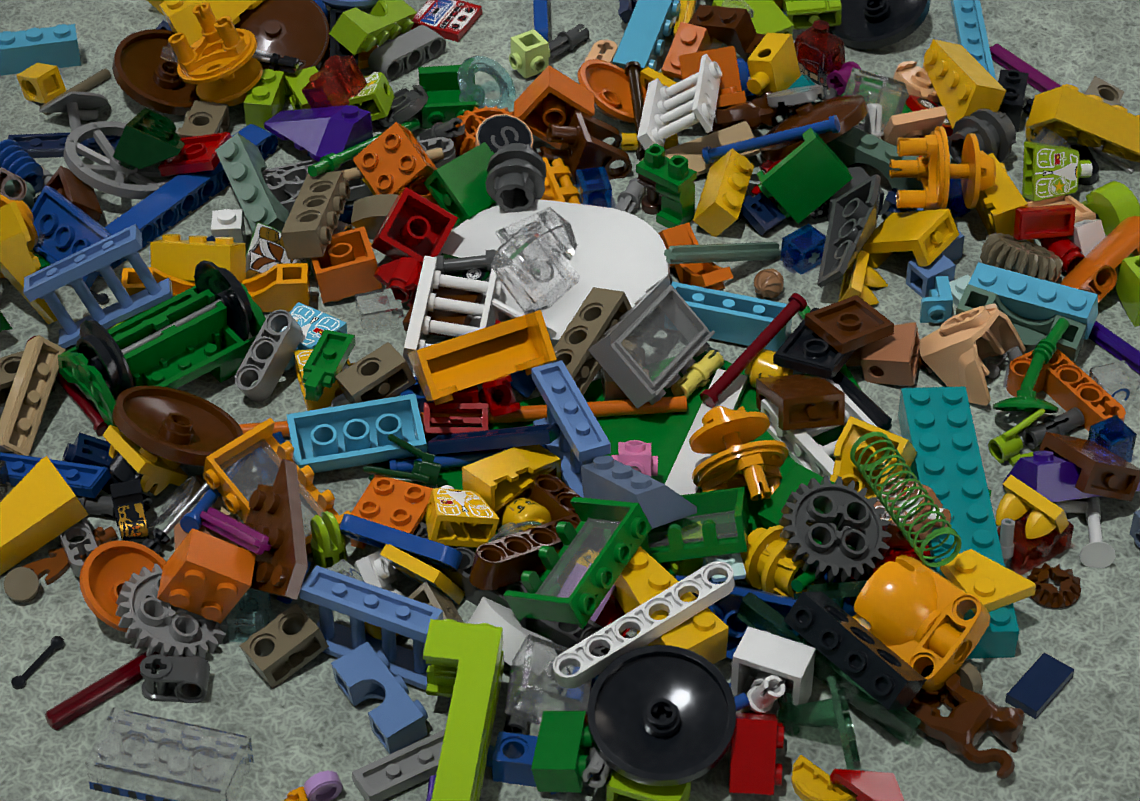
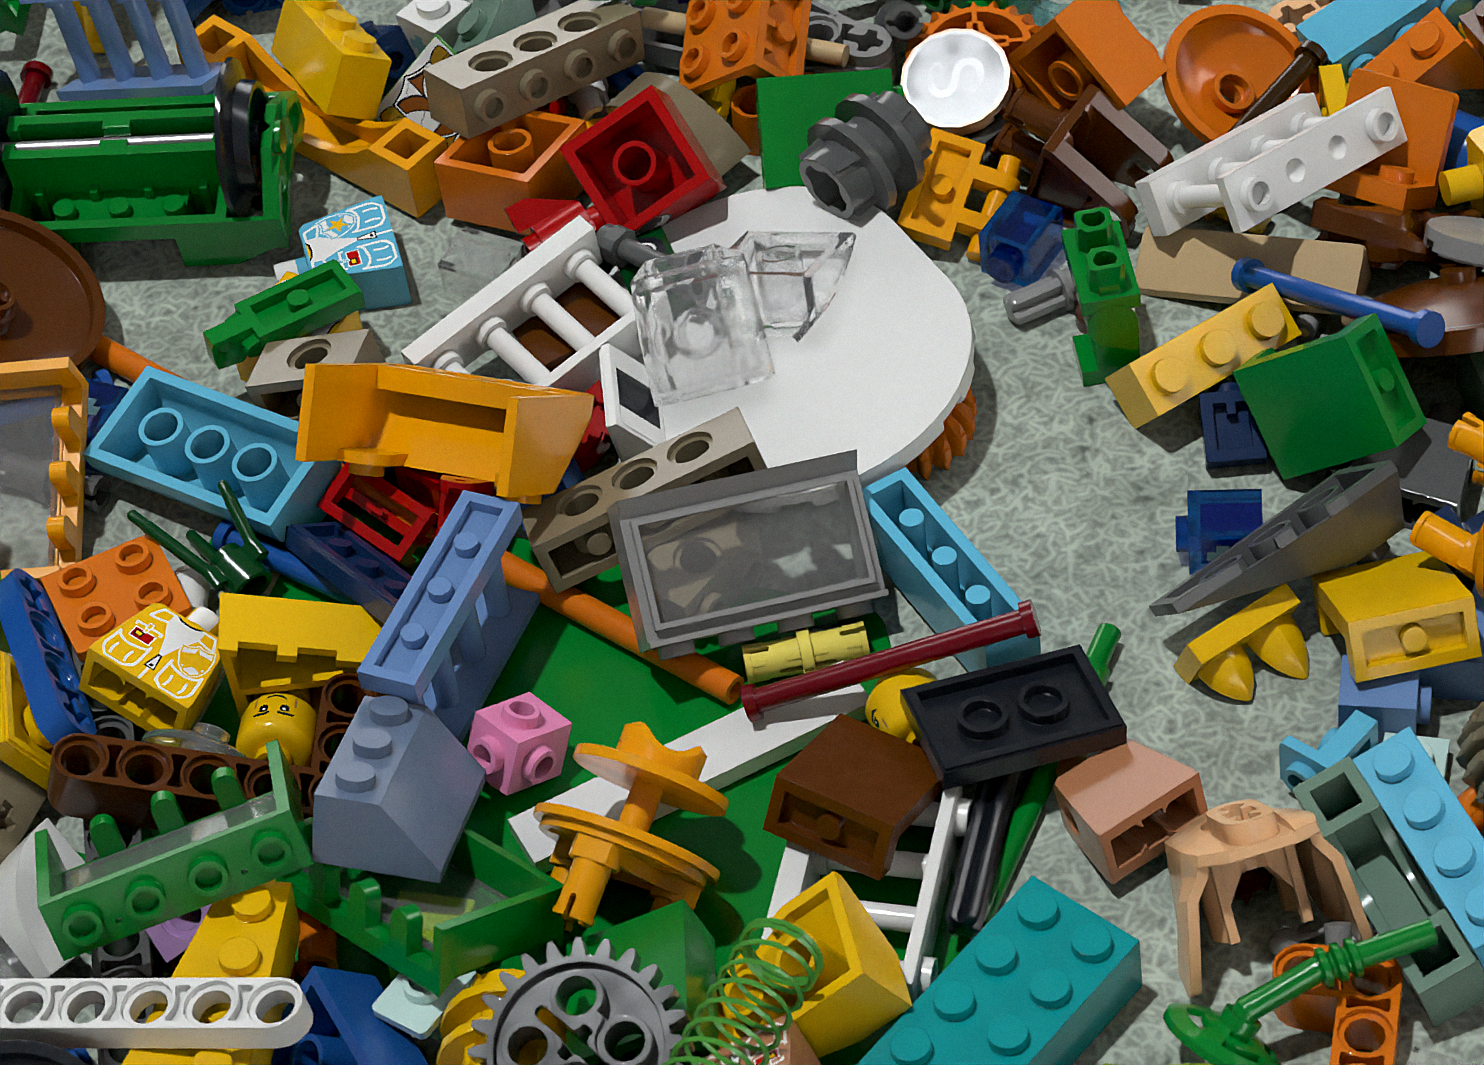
camera: 50 degrees right, 5 degrees up
(268, 341) = (242, 258): light grey beam -> none
(696, 274) = (999, 458): orange arch -> none
(722, 252) = (1047, 461): sand green axle -> none
(768, 283) = (1096, 560): medium nougat plate -> none
(849, 324) = (1072, 709): reddish brown tile -> none

